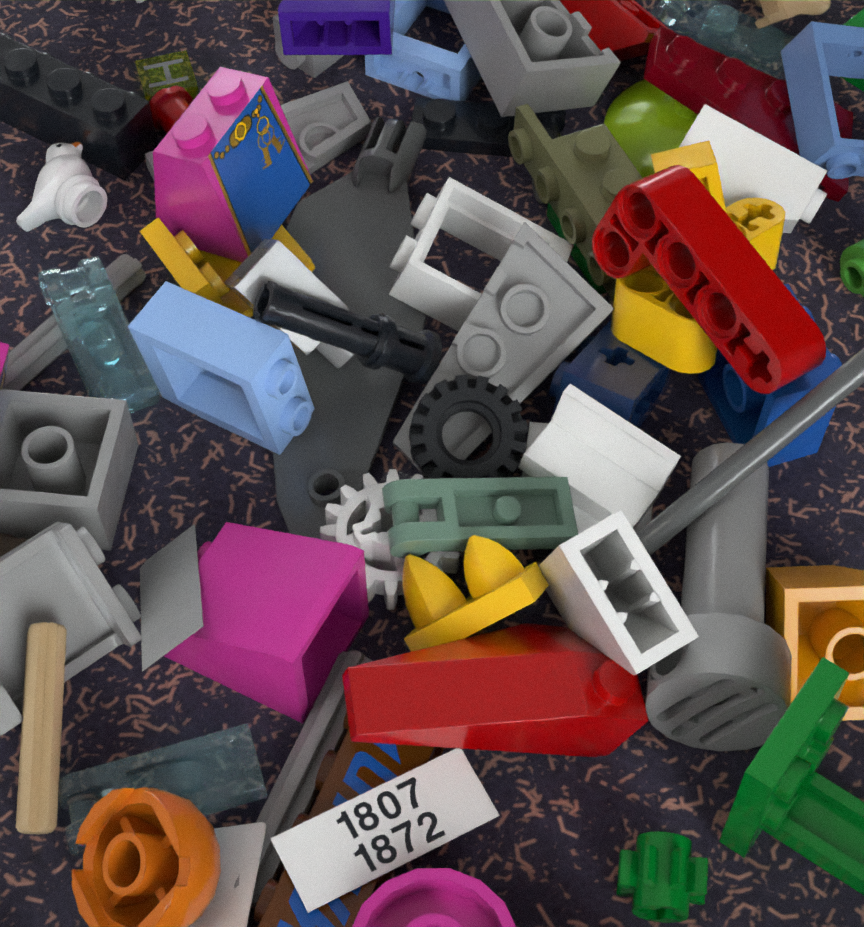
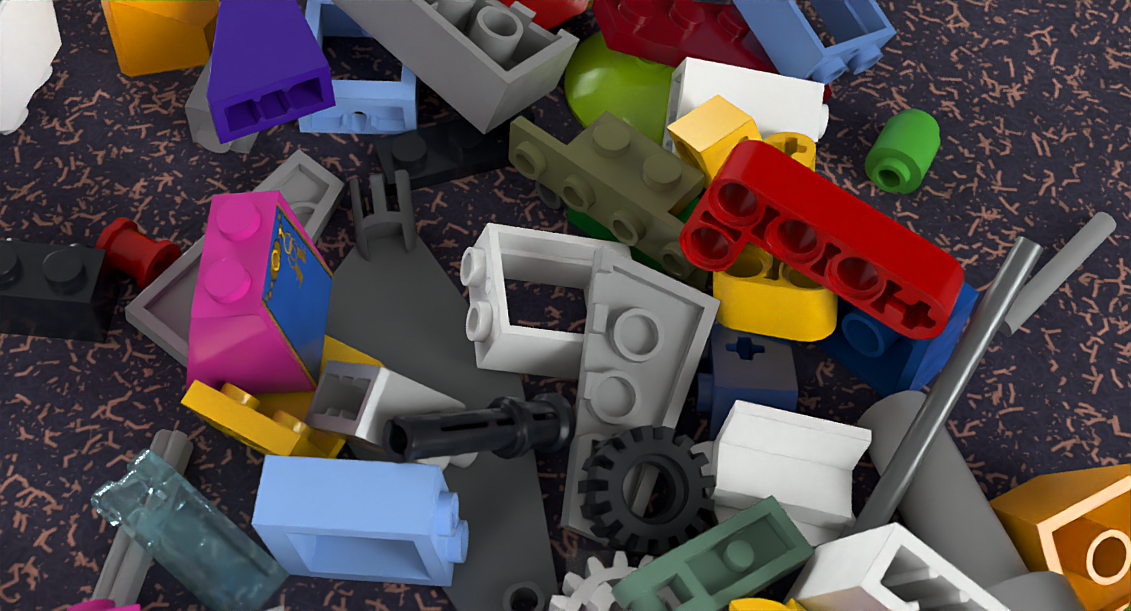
camera: 30 degrees left, 0 degrees up
(64, 191) = (51, 381): white animal -> none
(166, 72) = (88, 209): clear neon green tile -> none

